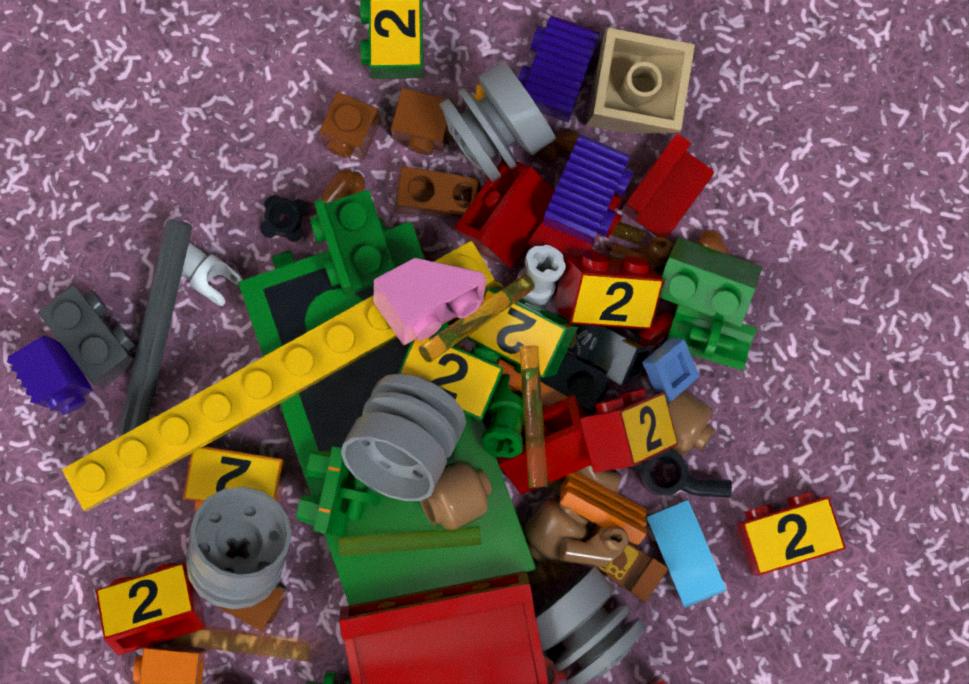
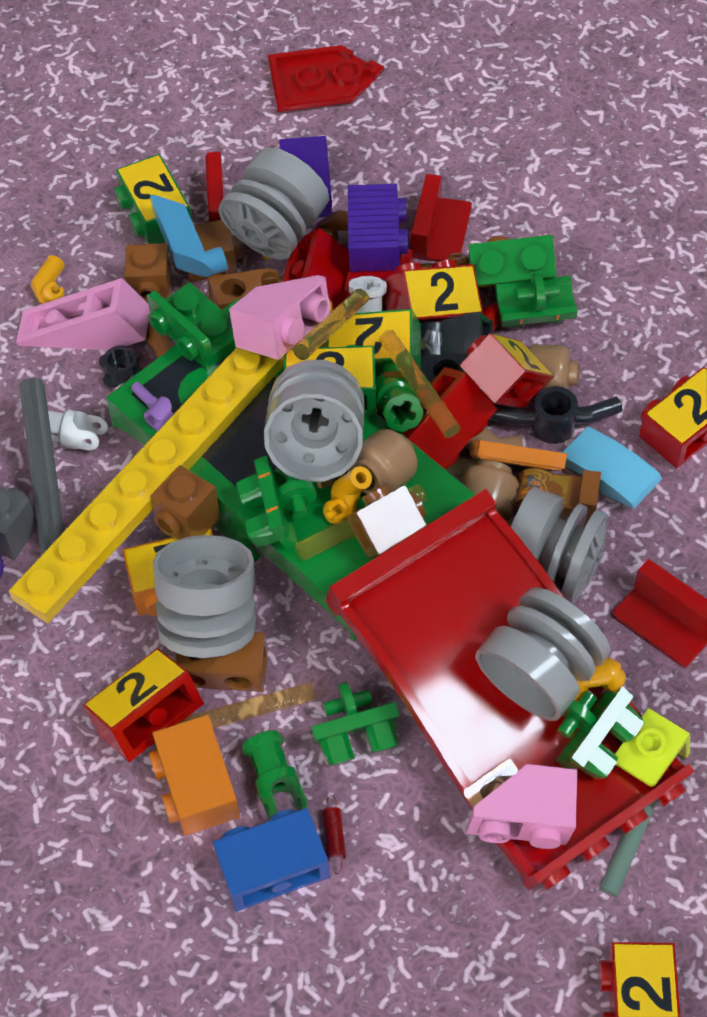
camera: 20 degrees left, 25 degrees down
(249, 82) = (44, 282): none -> light orange arm
(259, 442) = (185, 505): none -> dark orange brick
(268, 151) = (87, 319): none -> bright pink slope
(278, 332) = (159, 409): none -> medium lavender hand
(394, 113) = (184, 241): none -> dark azure piece
(405, 517) = (346, 494): none -> light orange arm
(427, 565) = (386, 519): none -> brick
(460, 49) = (215, 184): none -> red tile
(597, 550) = (535, 473): medium nougat arm -> none
(639, 83) = (376, 150): tan slope -> none
(671, 368) = (516, 324): medium blue plate -> none

